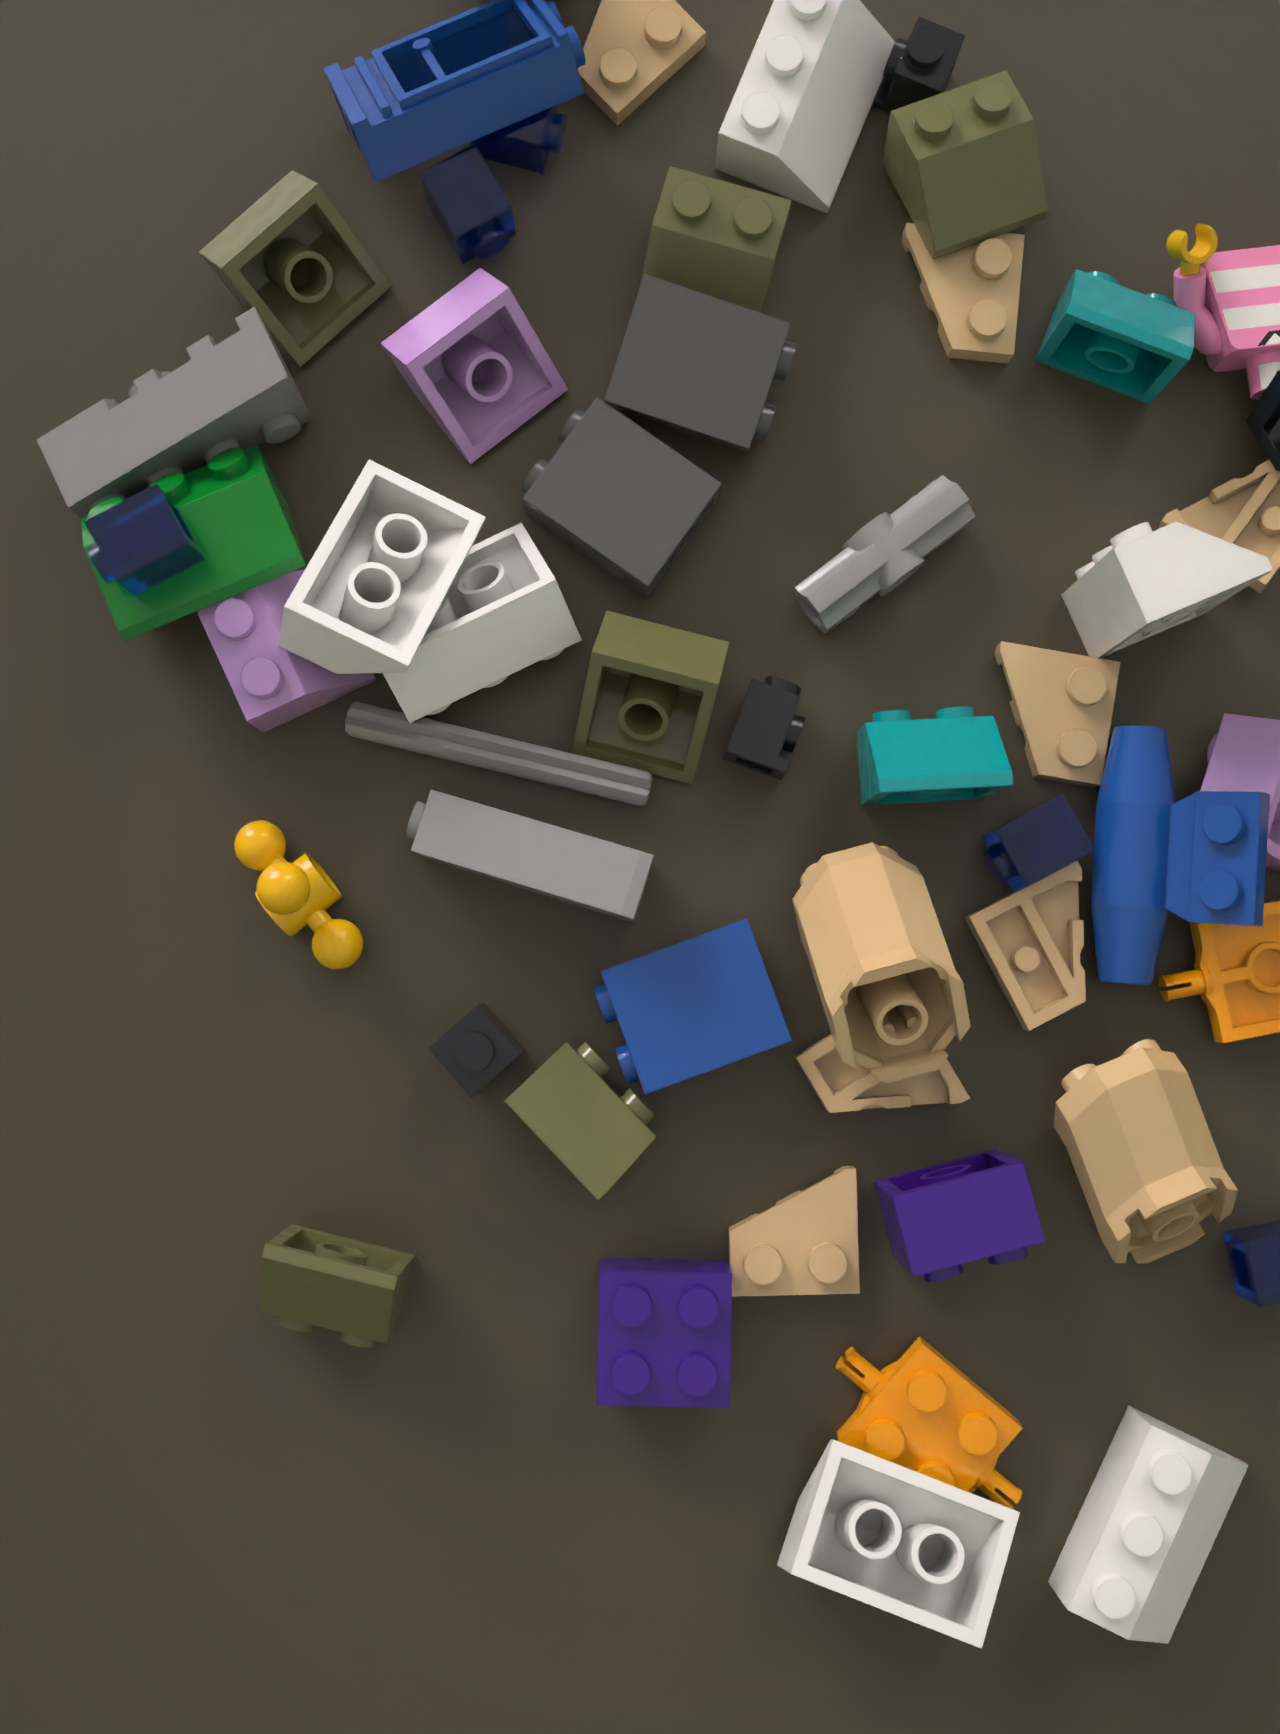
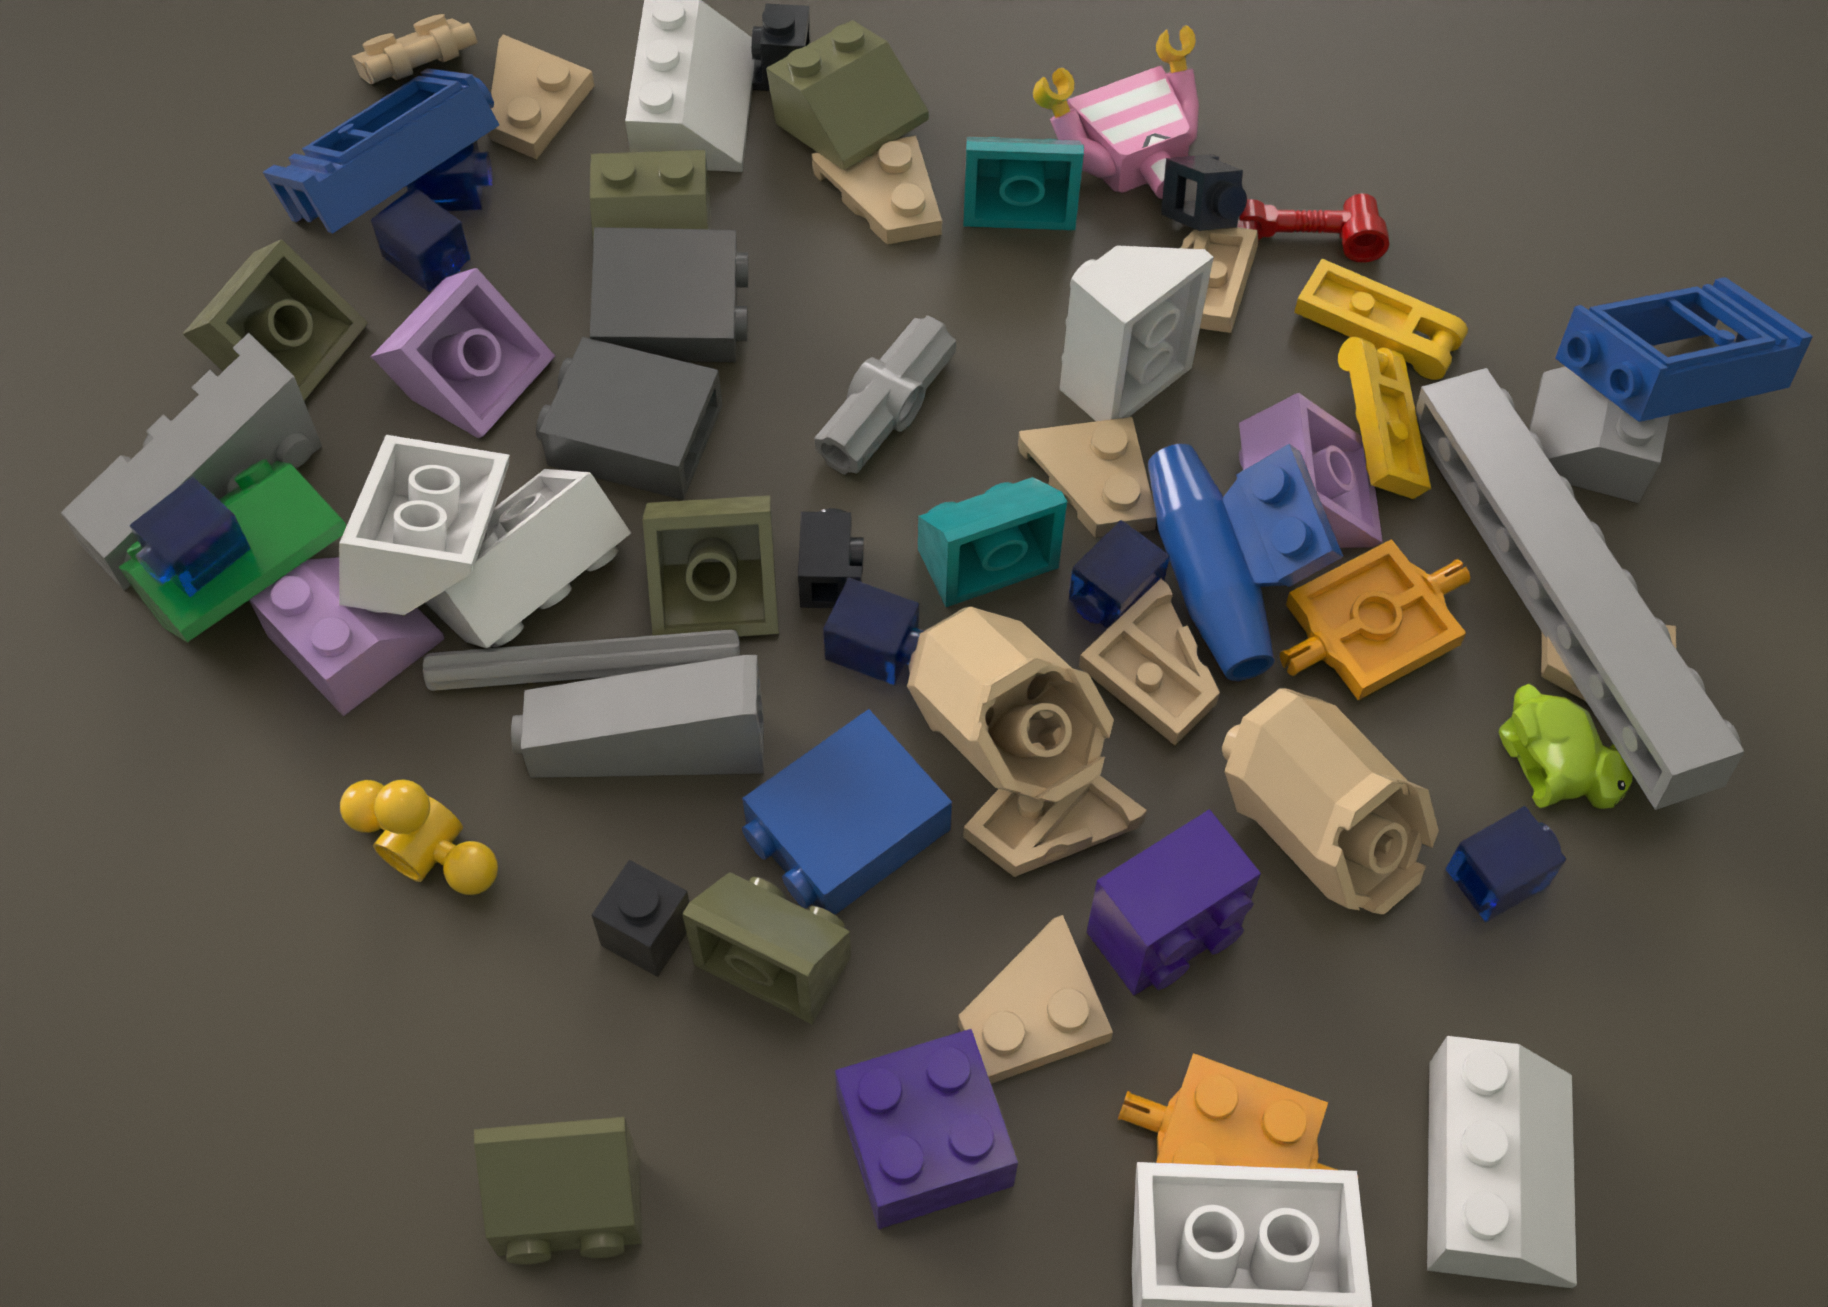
camera: 15 degrees left, 25 degrees down
(782, 823) = (872, 631): none -> clear blue brick

